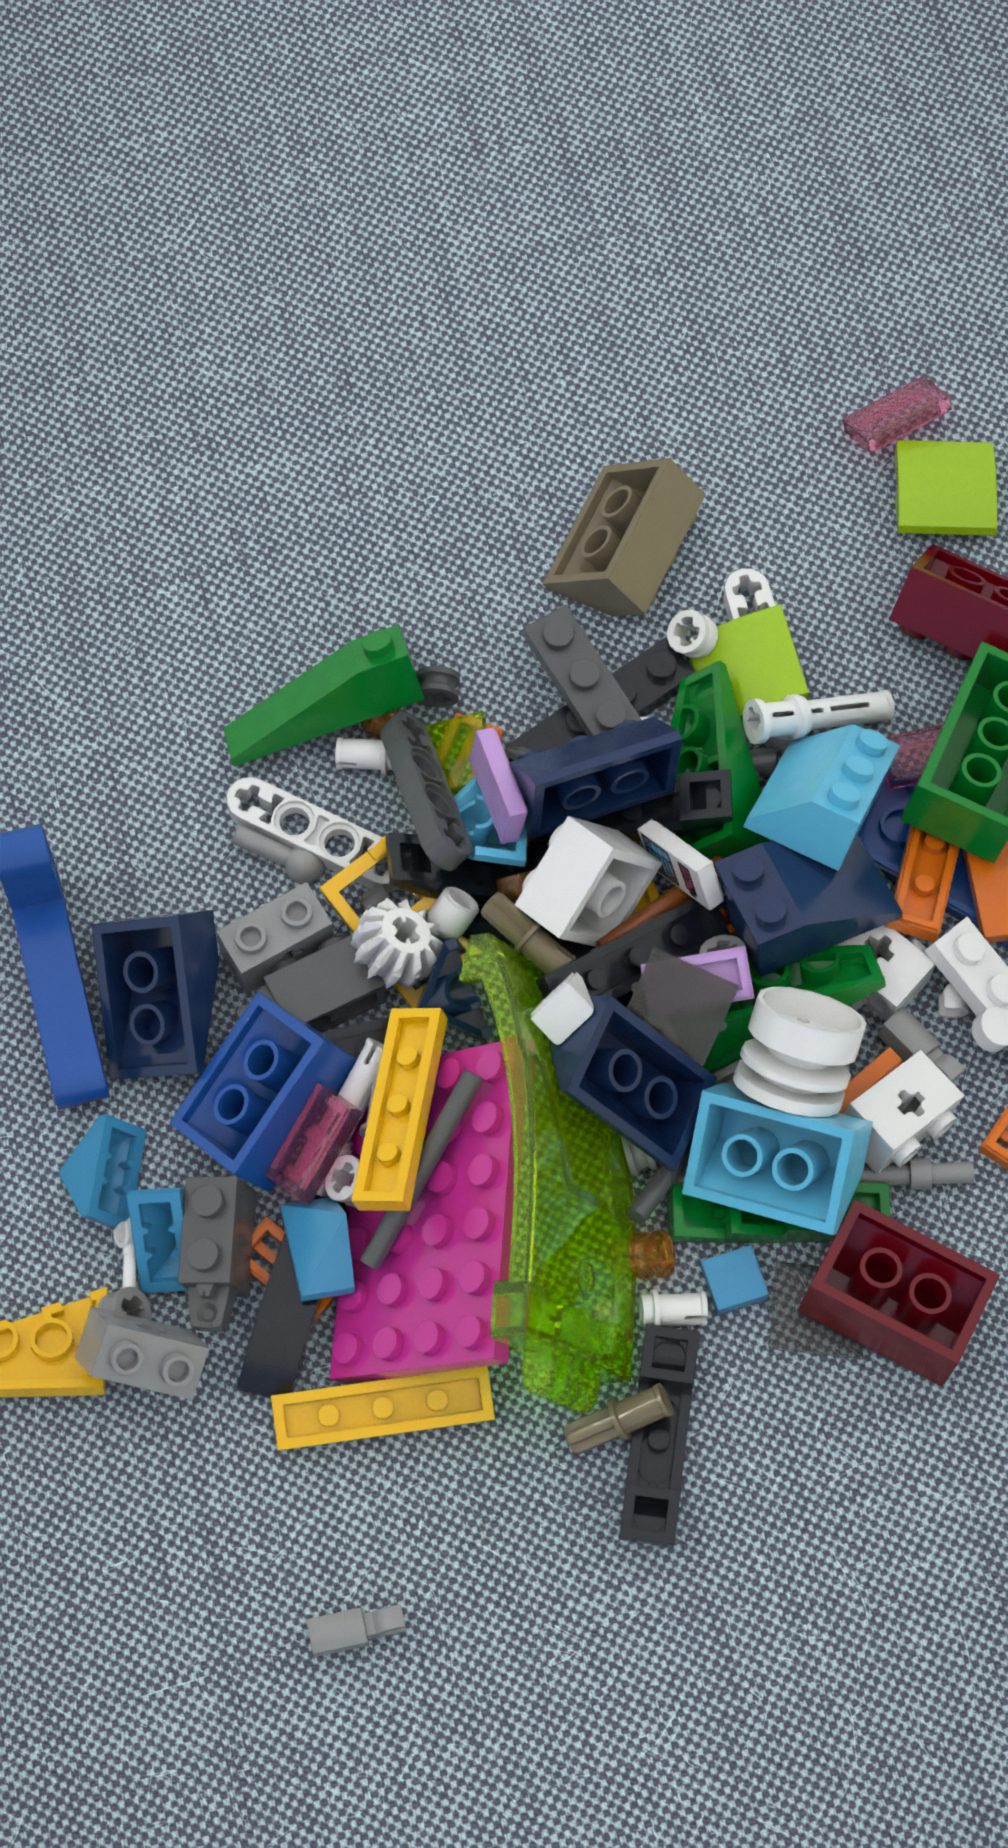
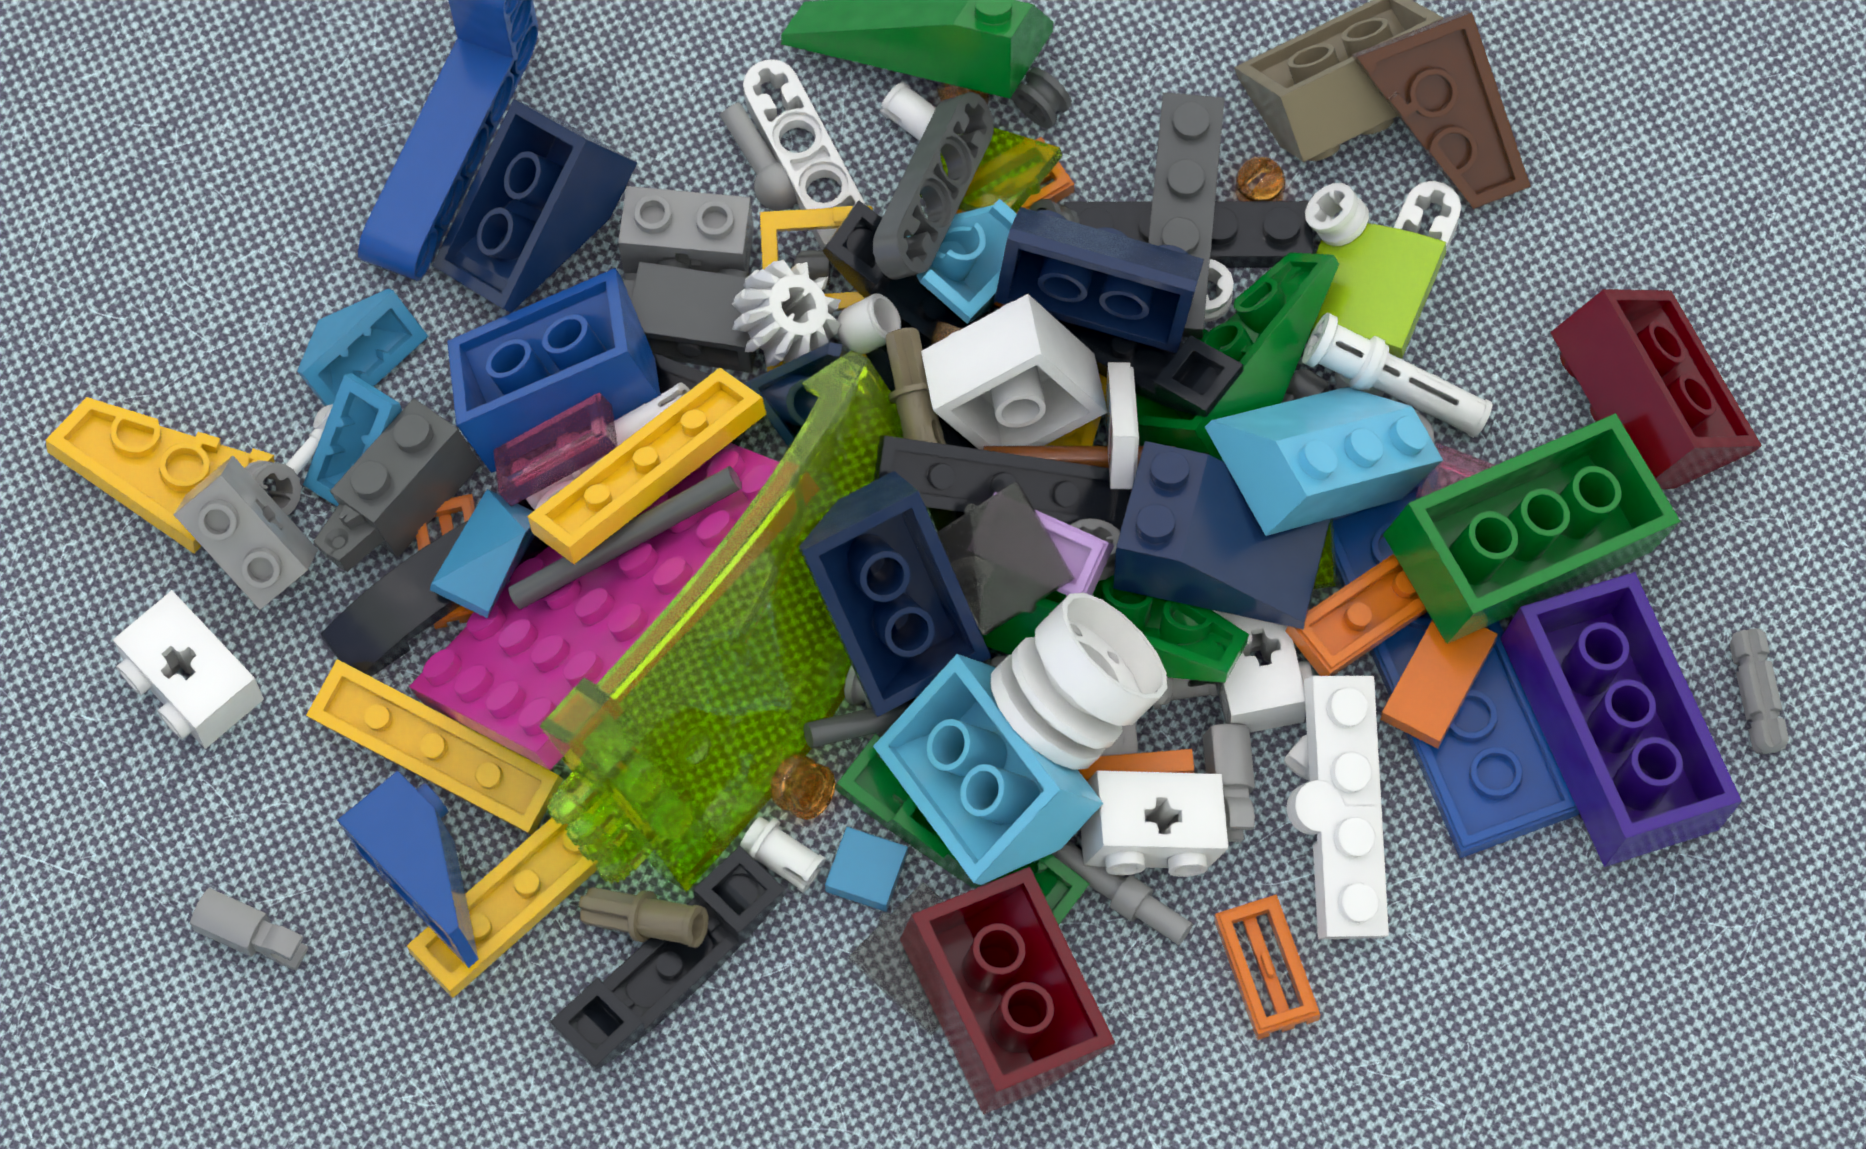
camera: 40 degrees right, 0 degrees up
(146, 1459) = (174, 638): none -> white brick
(423, 1489) = (413, 852): none -> blue slope
(498, 785) = (997, 224): lavender tile -> none
(517, 1474) = (508, 904): none -> yellow plate
(564, 1009) = (871, 474): white slope -> none
(610, 642) = (1269, 188): none -> clear orange hinge
(714, 513) = (1451, 105): none -> reddish brown wing
(897, 414) = (1739, 133): clear pink tile -> none
(946, 487) = (1729, 241): lime slope -> none

